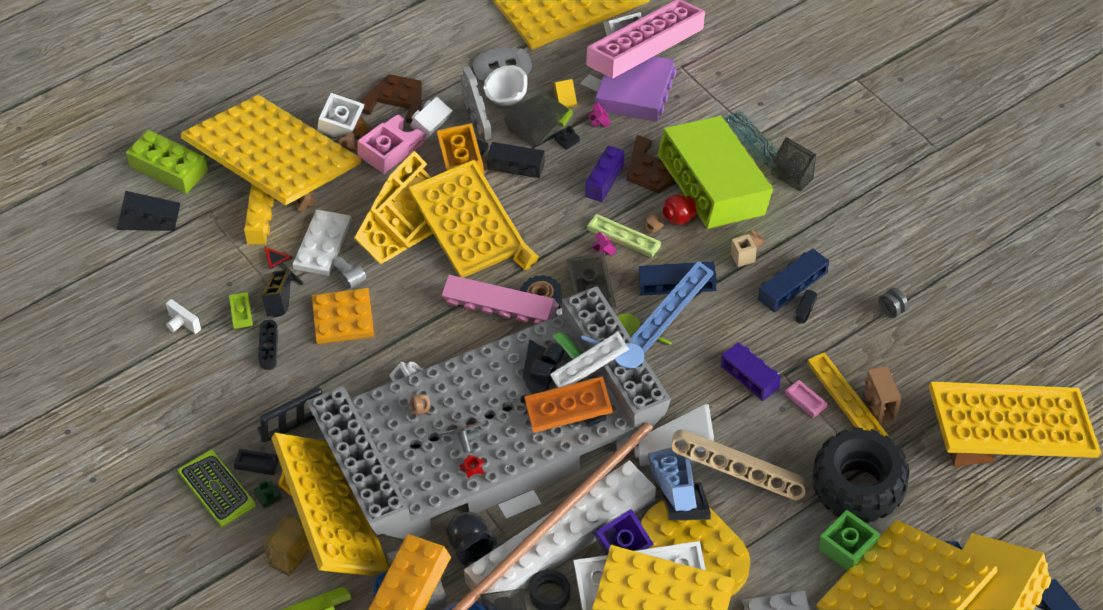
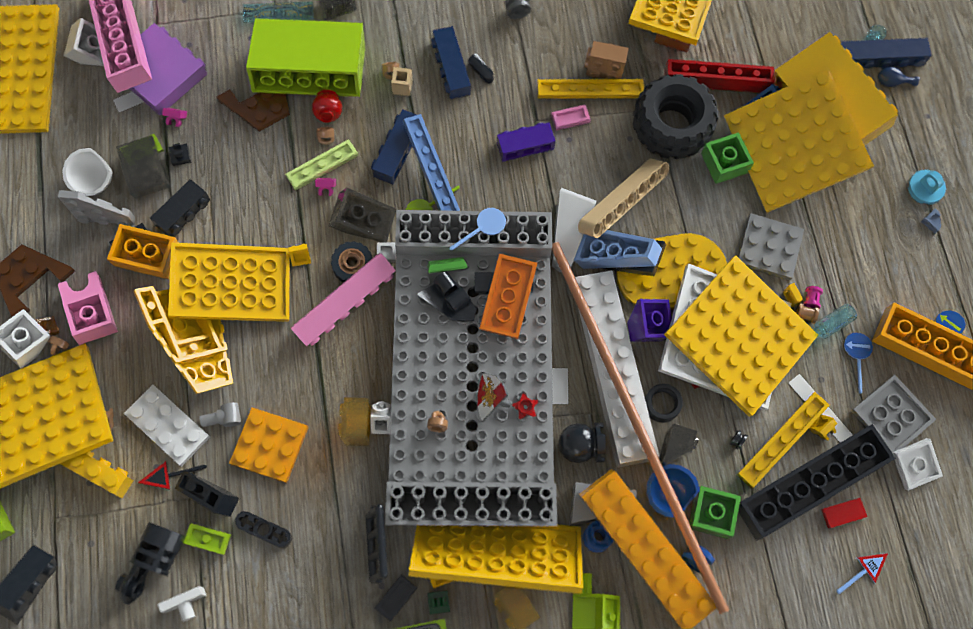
camera: 70 degrees left, 20 degrees up
(210, 277) = (147, 558): none -> black cylinder
(388, 354) = (355, 421): none -> clear yellow brick
(431, 117) = (78, 256): white brick -> none
(500, 56) = (39, 161): light grey piece -> none
(565, 92) = (123, 129): yellow slope -> none
(590, 361) = (479, 256): white tile -> none
(604, 173) = (246, 144): dark purple brick -> none
(938, 494) = (723, 75): none -> red brick

